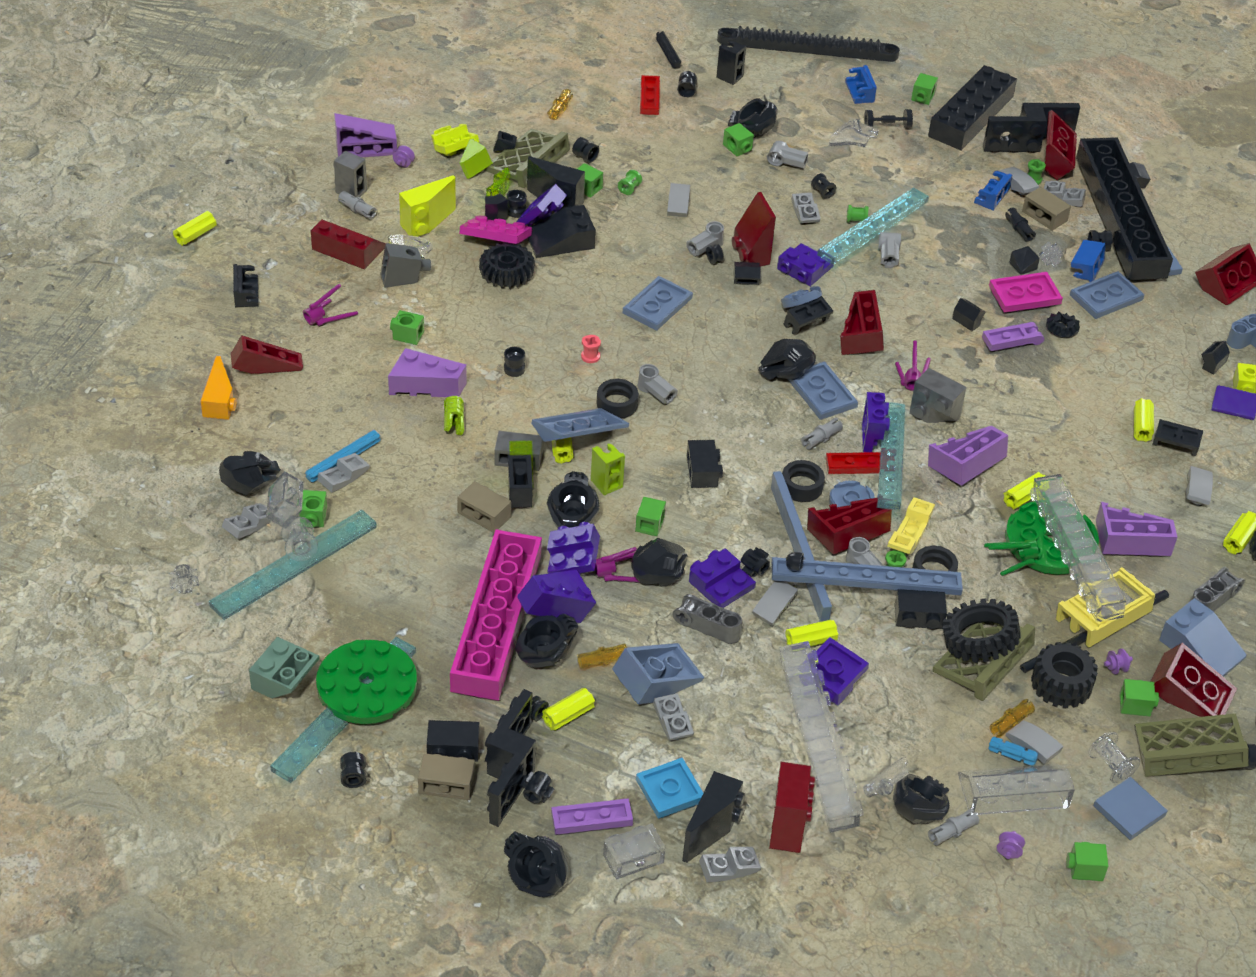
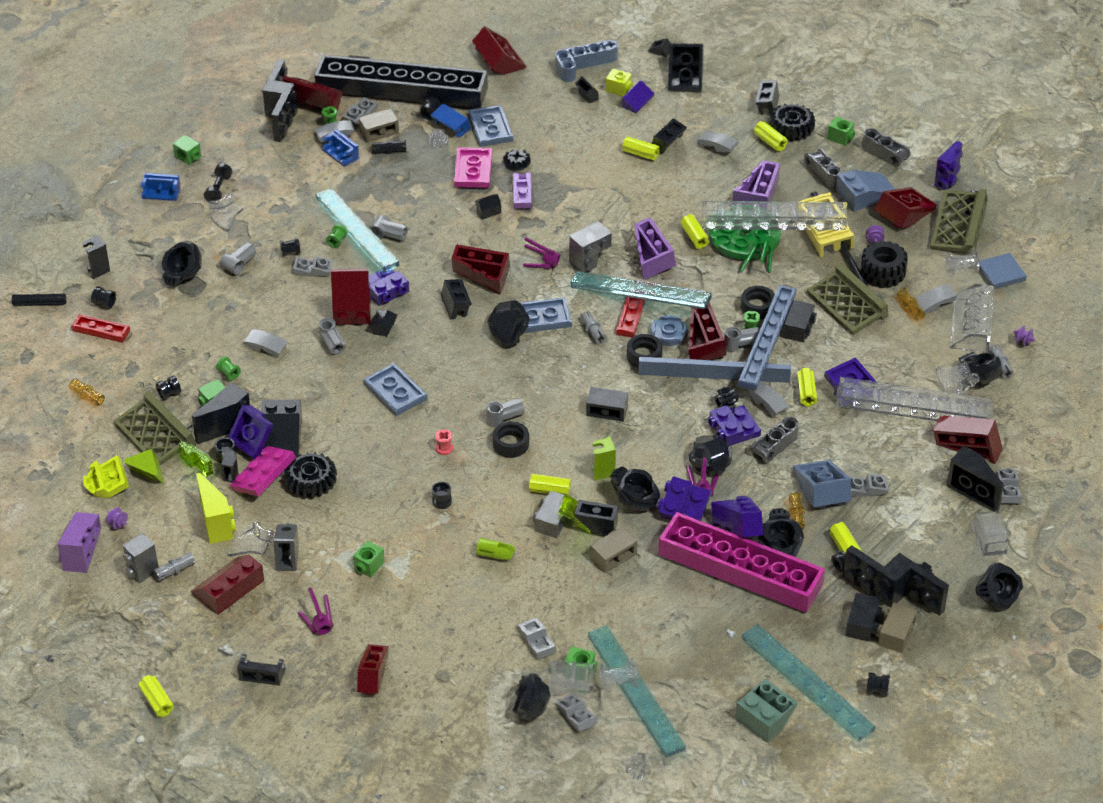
camera: 70 degrees left, 0 degrees up
(218, 394) = (405, 708): light orange slope -> none
(357, 447) = (516, 635): dark azure axle -> none
(360, 703) = (806, 646): green plate -> none
(426, 373) = (438, 557): medium lavender wedge -> none
(504, 141) = (127, 443): black slope -> none
(577, 424) = (548, 464): sand blue slope -> none
(591, 816) = (952, 551): medium lavender plate -> none
(650, 516) = (656, 448): bright green brick -> none
(669, 787) = (935, 501): dark azure plate -> none
(714, 254) = (351, 331): black bush -> none
(738, 139) = (202, 283): bright green brick -> none
(795, 561) = (753, 365): black hinge -> none
(801, 297) = (435, 294): sand blue tile -> none
(809, 44) = (78, 207): black gear -> none
(874, 420) = (604, 289): dark purple plate -> none
(912, 526) = (724, 309): light yellow slope -> none
(971, 107) = (229, 128): black brick -> none
(987, 646) = (834, 309): black tyre -> none
(1013, 751) = (941, 312): dark azure axle -> none
(1024, 260) = (435, 156): black slope -> none
(1088, 861) = (1045, 302): bright green brick -> none
(1138, 697) = (910, 235): bright green brick -> none

